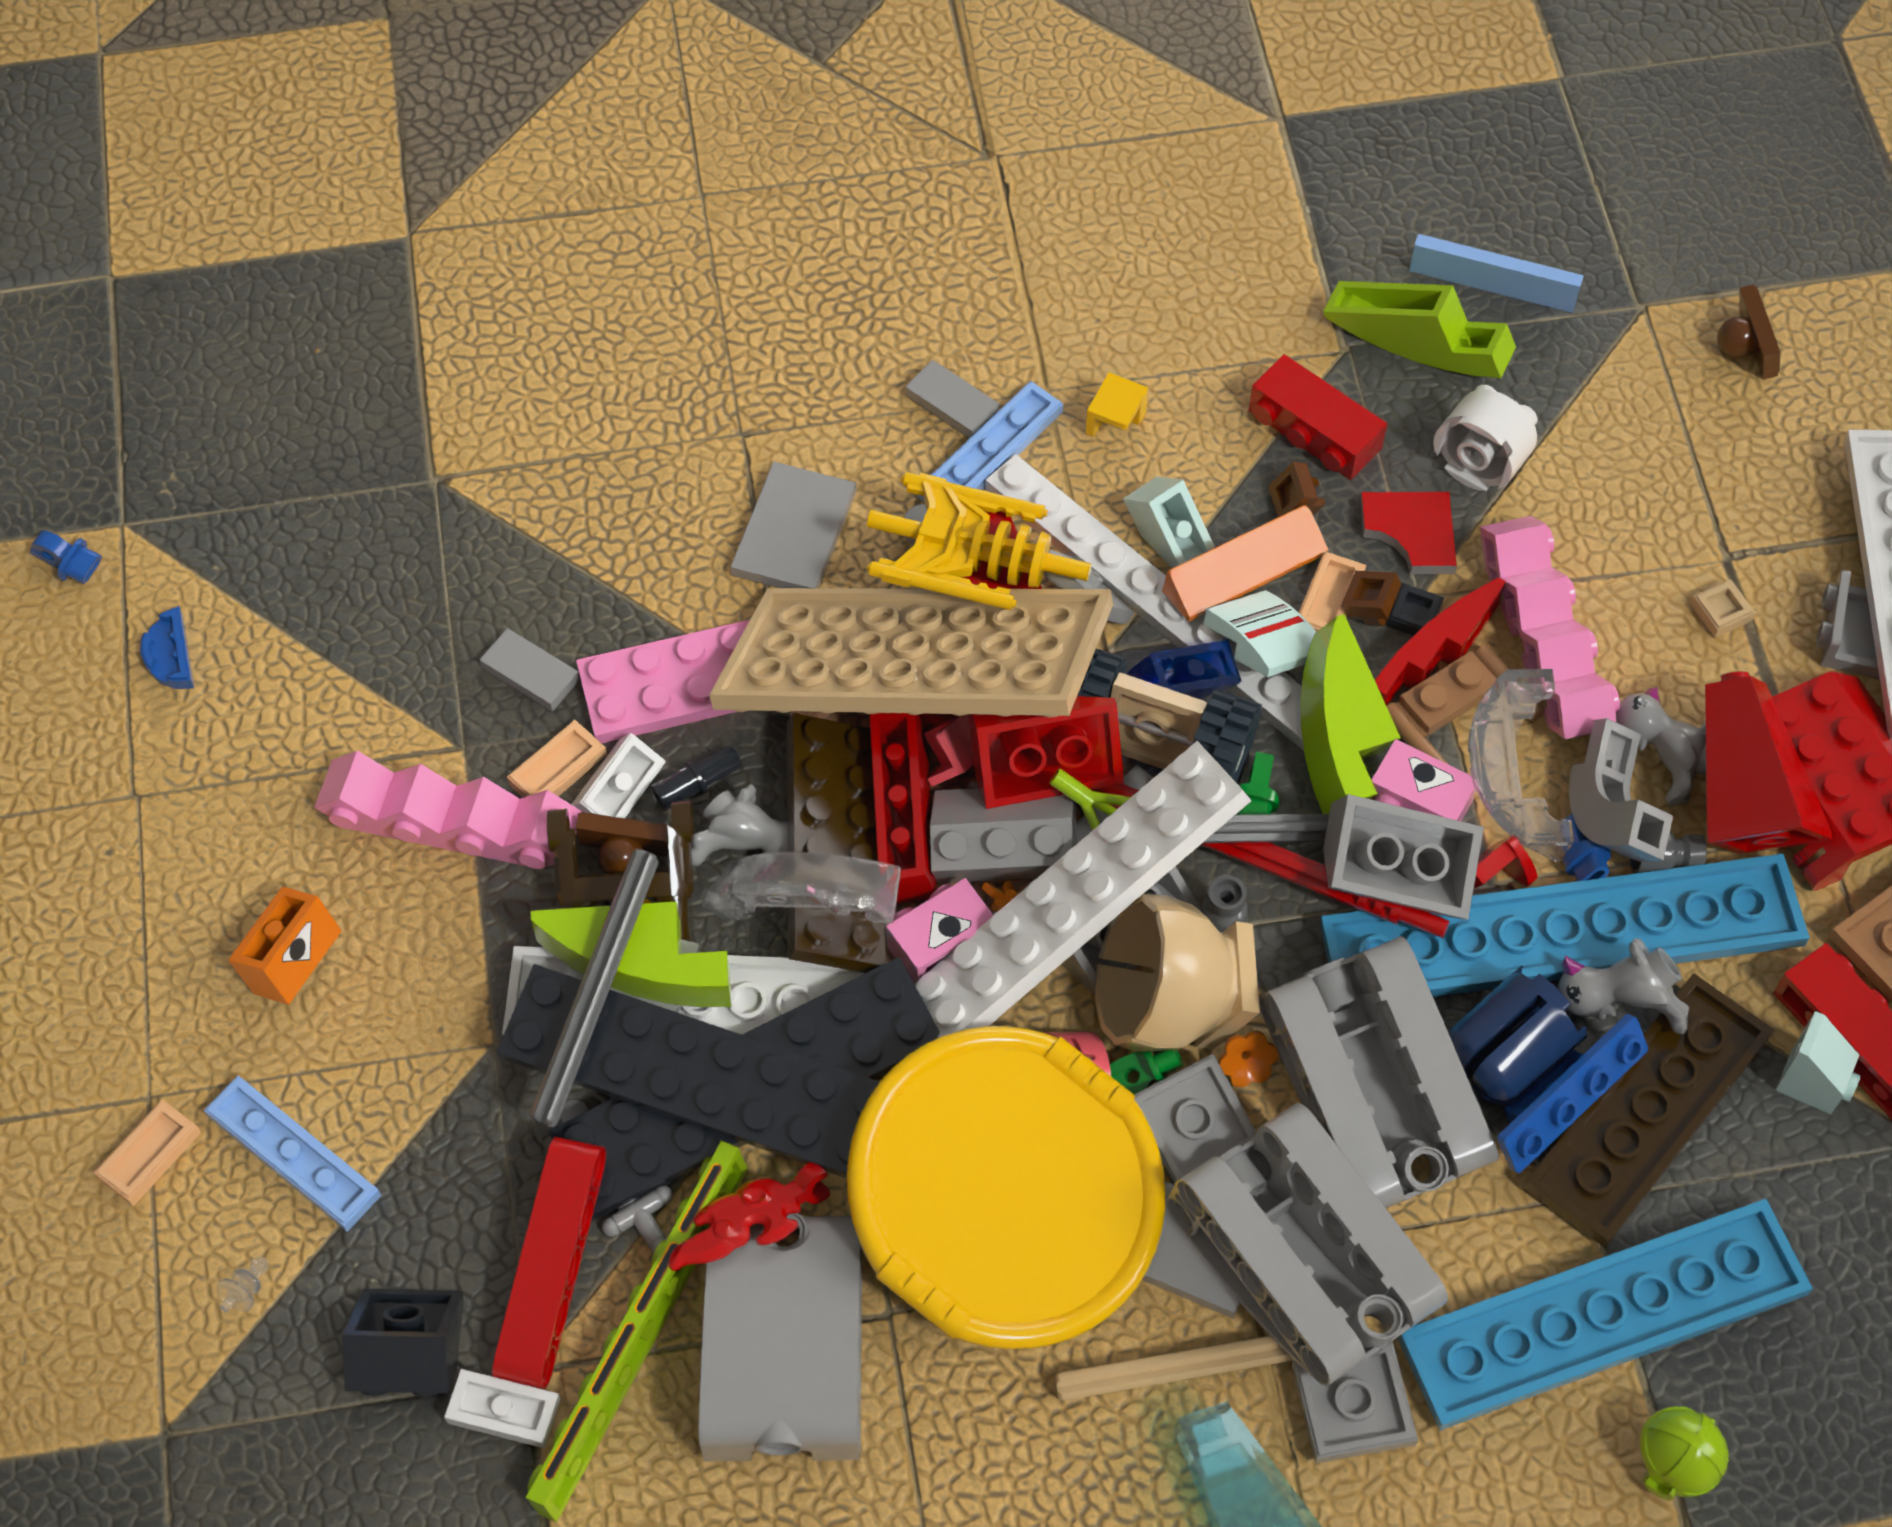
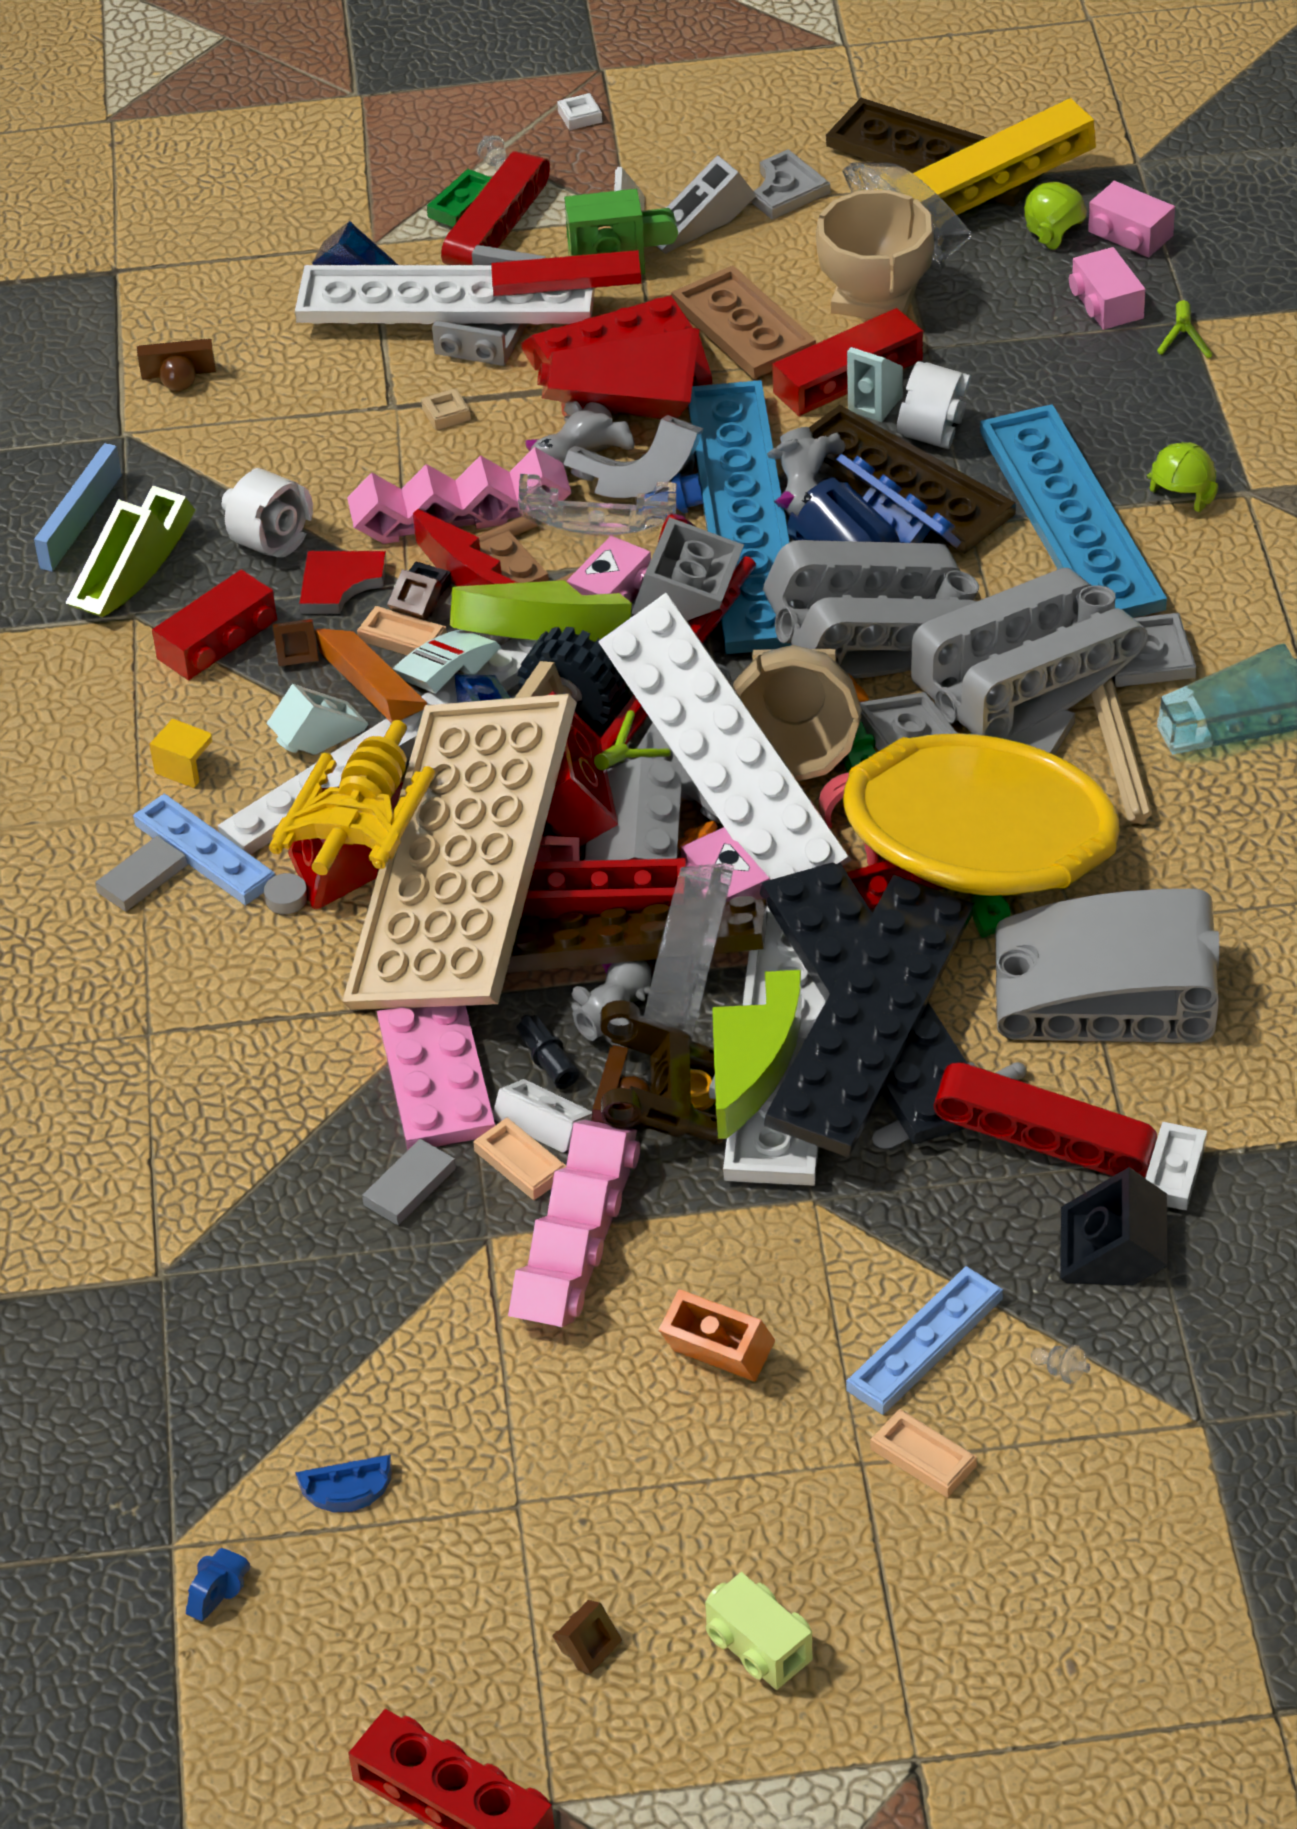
camera: 85 degrees left, 15 degrees down
(594, 988) = (801, 1054): dark grey axle -> none
(629, 1344) = (1104, 1072): lime plate -> none
(755, 1202) = (999, 987): red piece -> none
(793, 528) = (273, 987): light grey tile -> none
(1776, 1134) = (933, 404): none -> white brick

